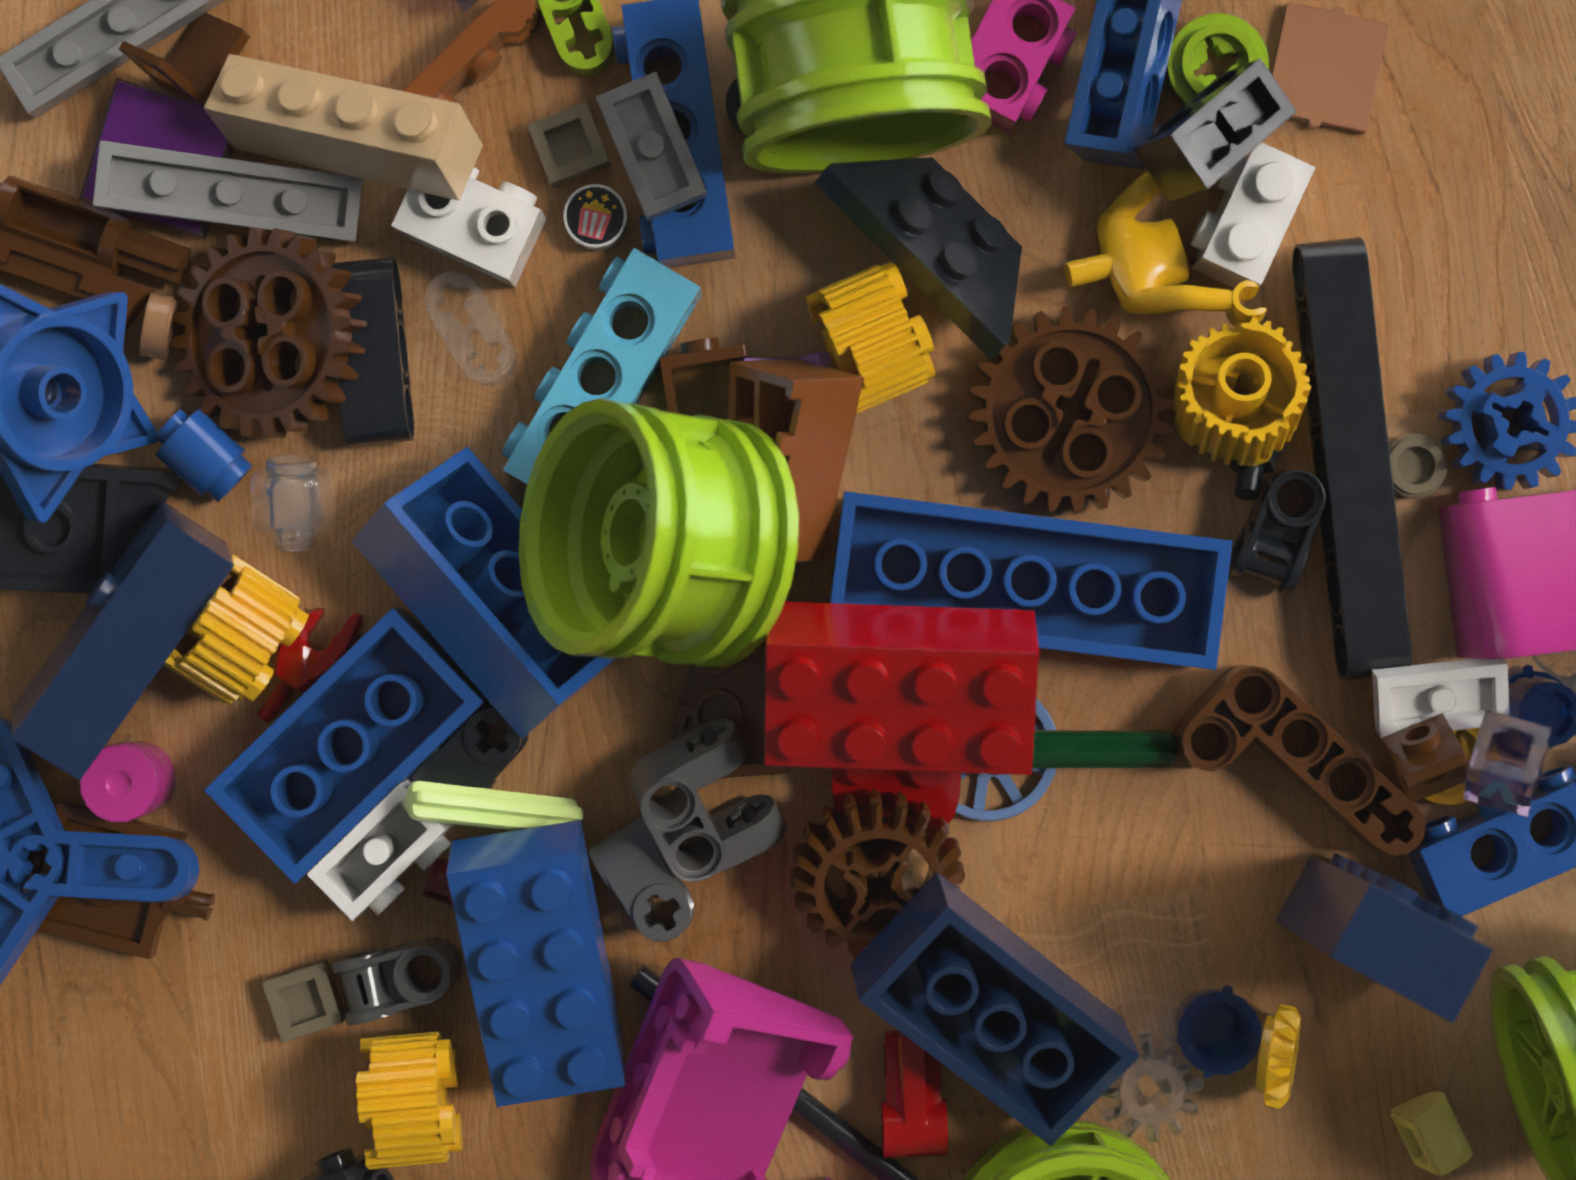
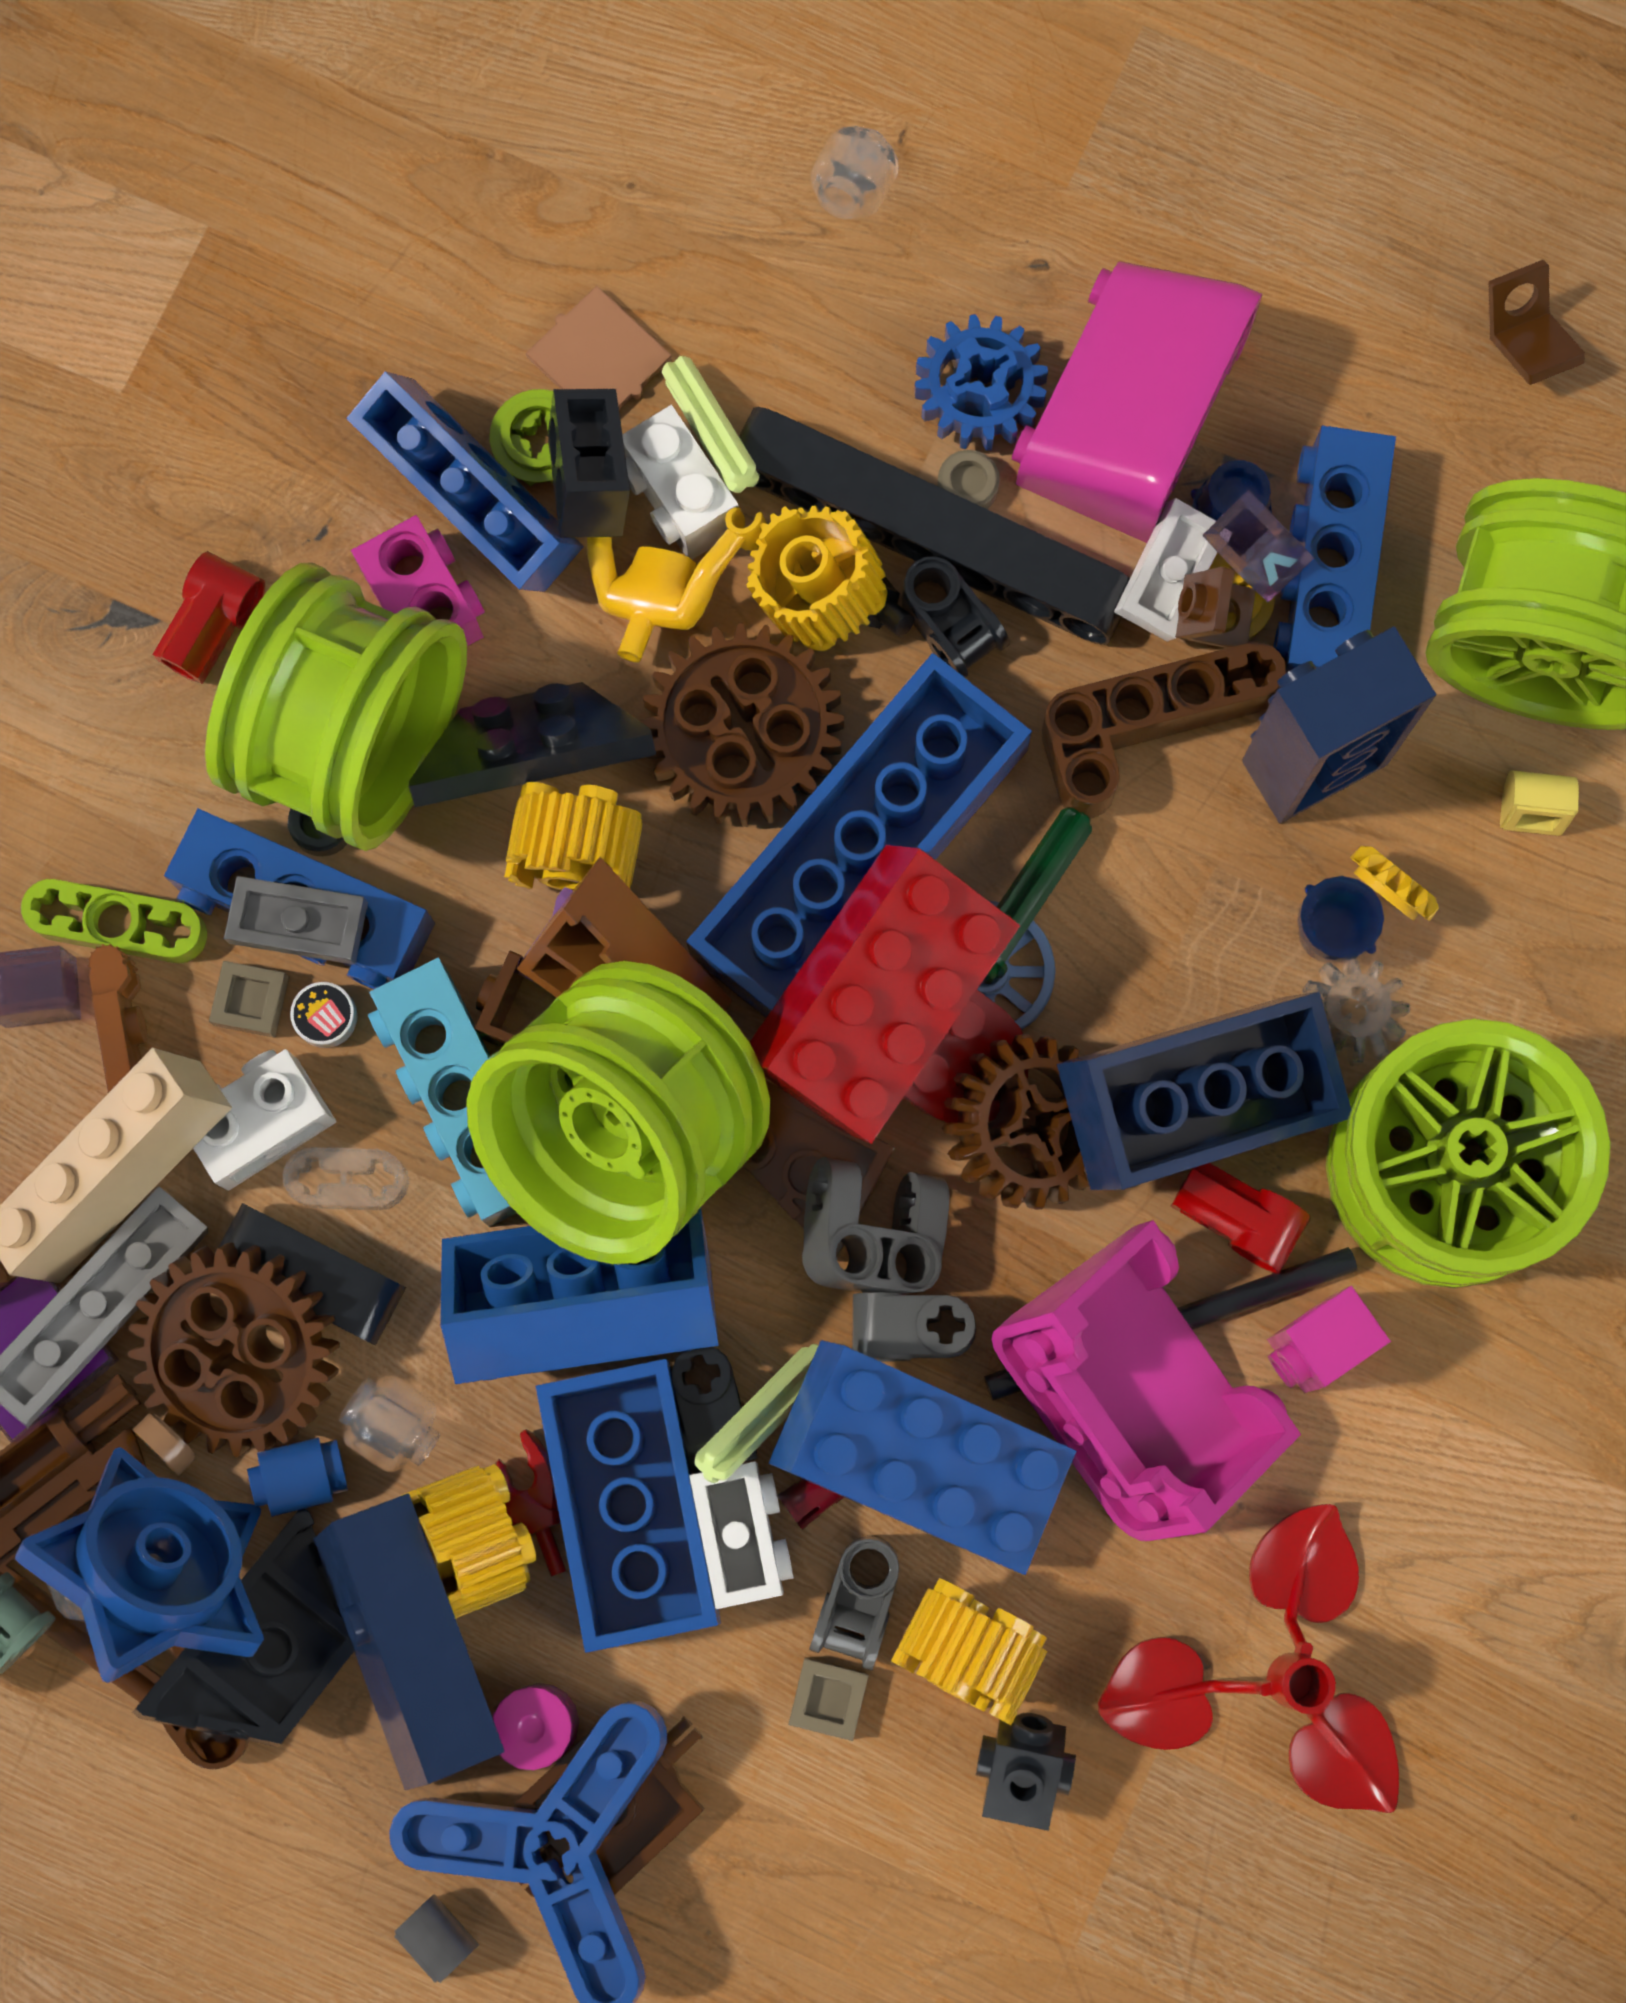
camera: 55 degrees left, 10 degrees down
(1321, 211) = (710, 424): none -> yellowish green axle

